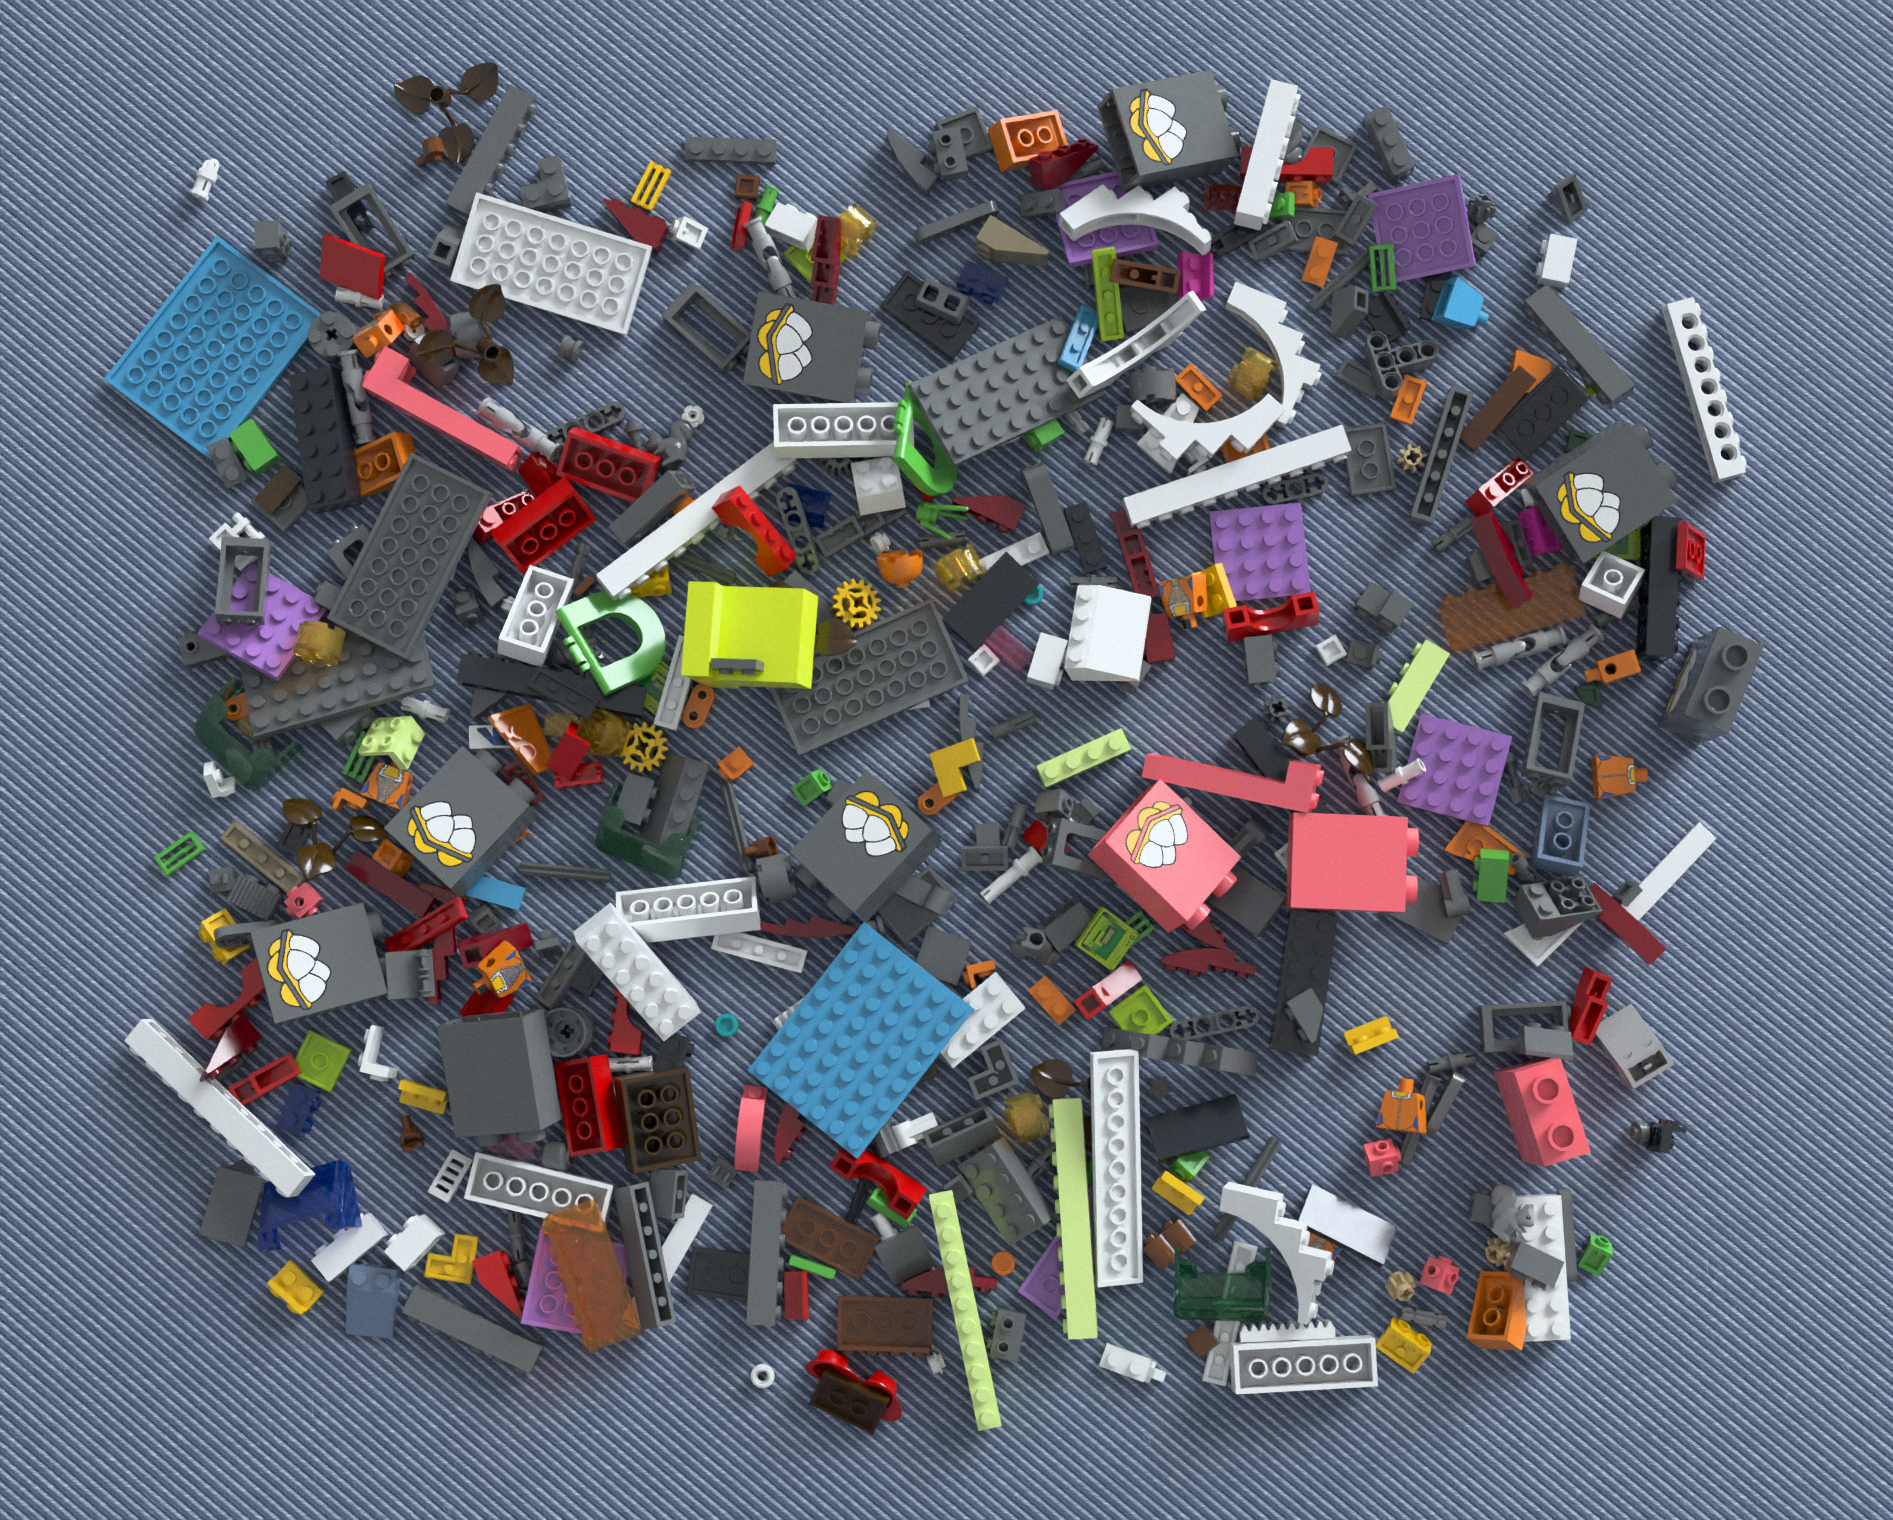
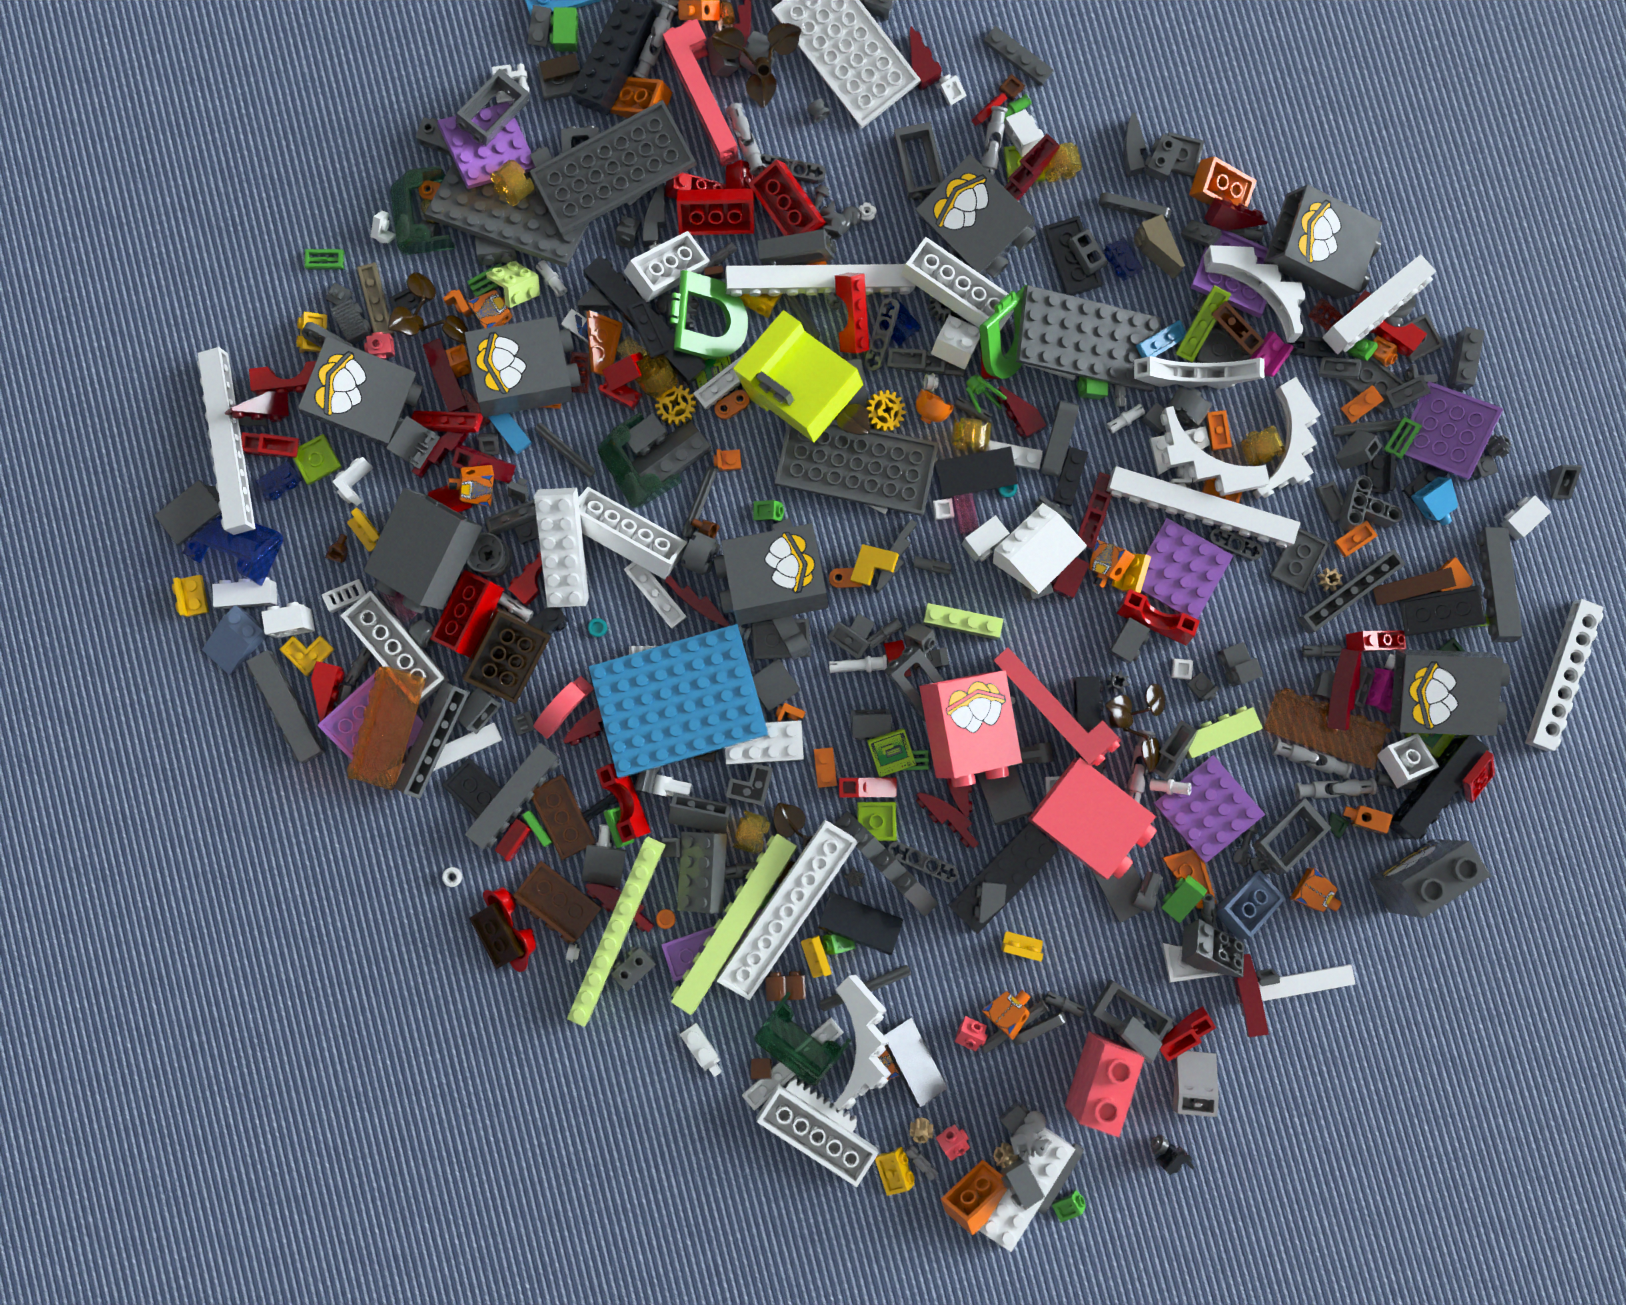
camera: 30 degrees right, 0 degrees up
(659, 169) = (943, 37): yellow tile -> none
(1034, 945) = (840, 721): dark grey animal -> none

